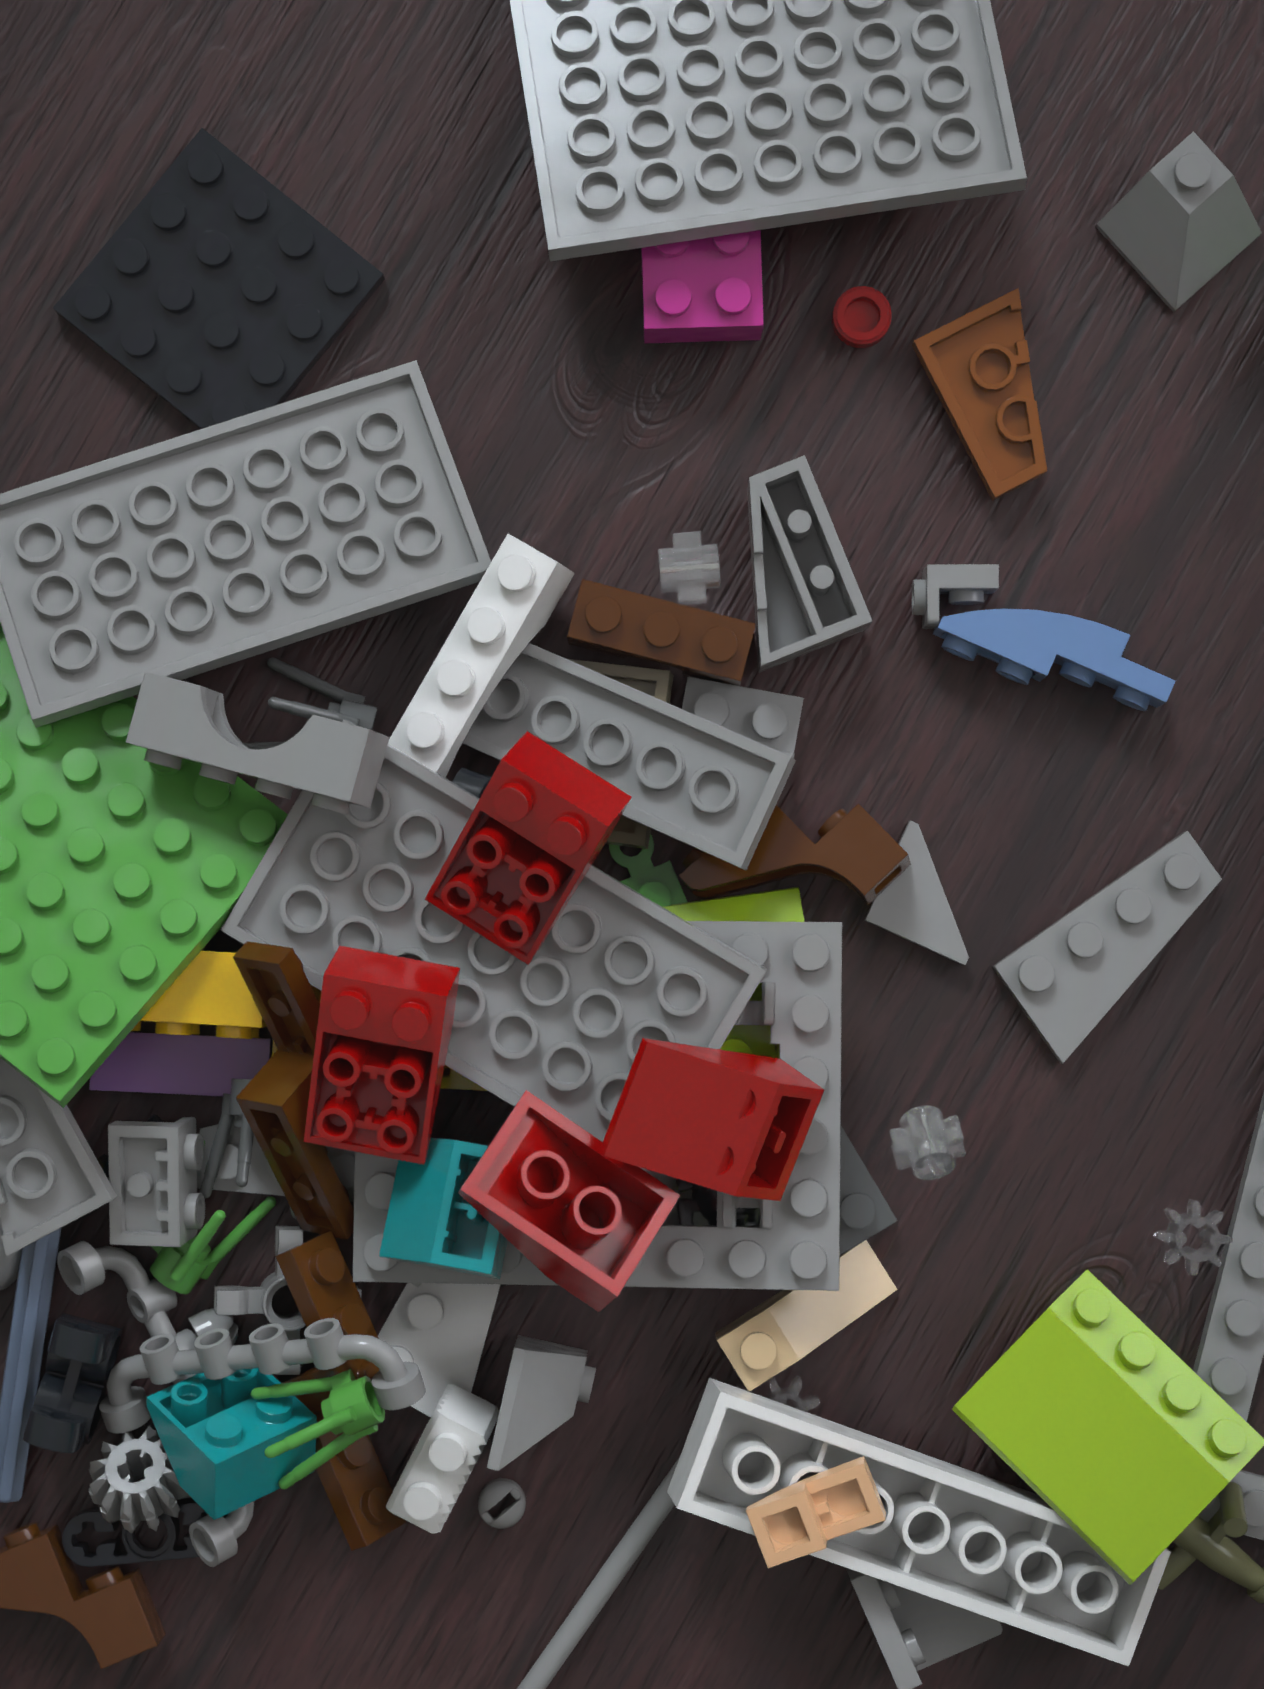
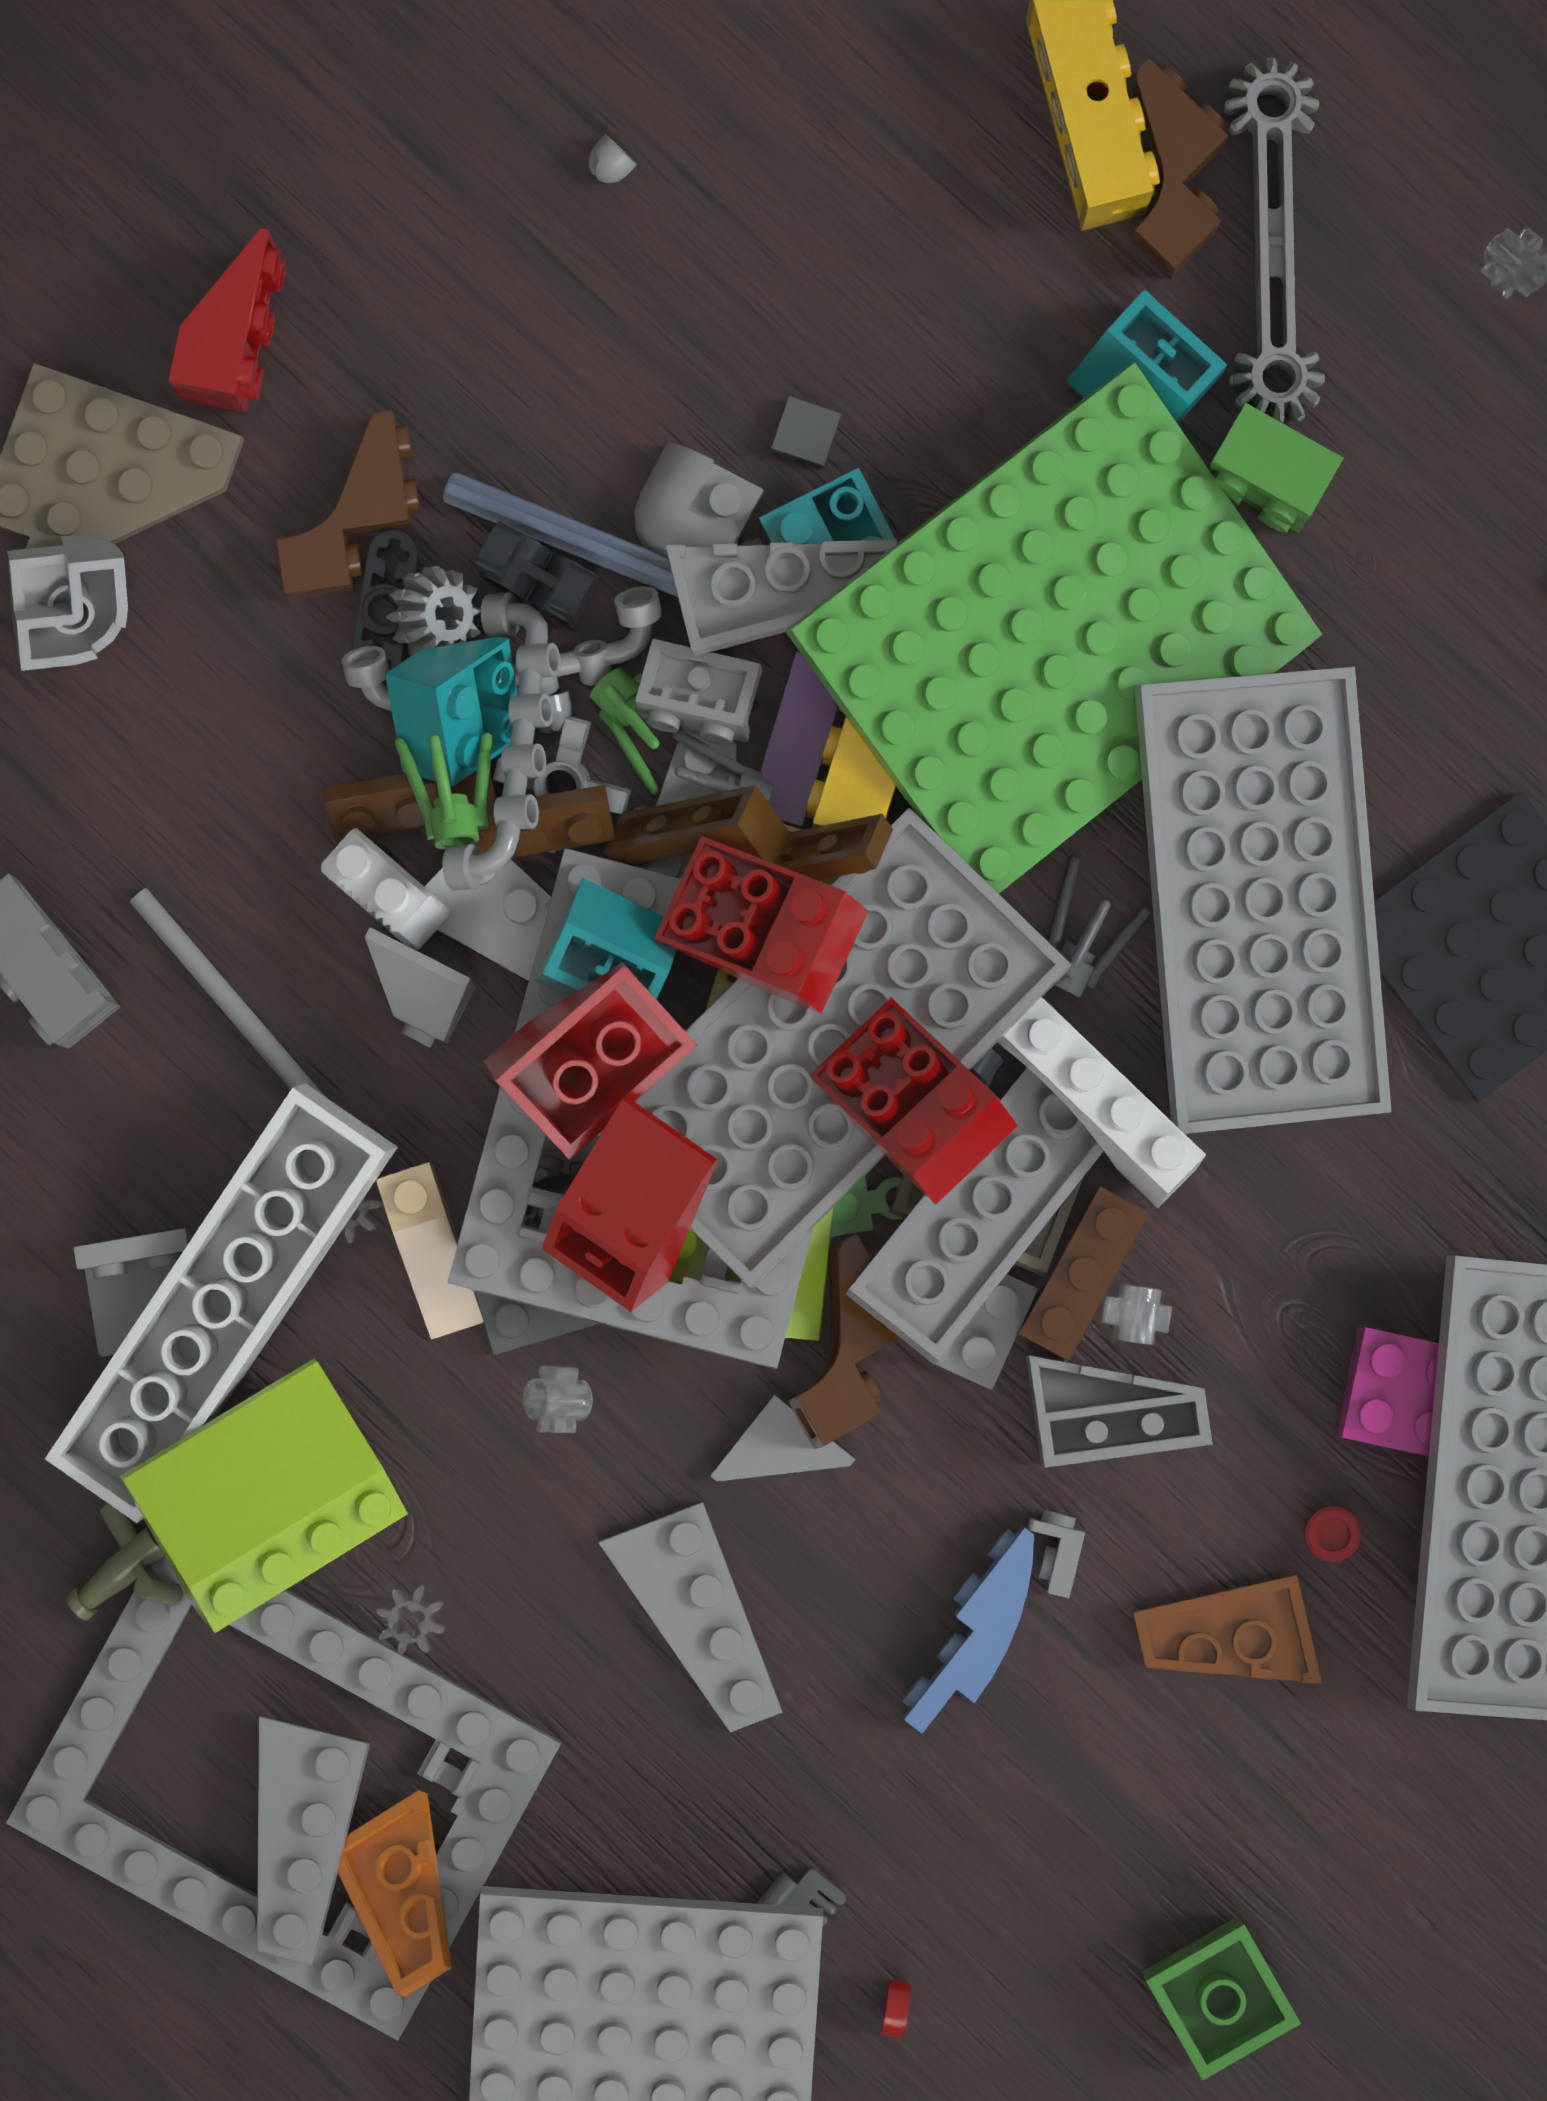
camera: 105 degrees right, 0 degrees up
(323, 758) = (1101, 826): light grey arch -> none
(495, 1492) = (340, 926): light grey hinge -> none
(816, 1510) = (257, 1210): light nougat slope -> none
(1181, 222) = (1346, 1852): light grey slope -> none

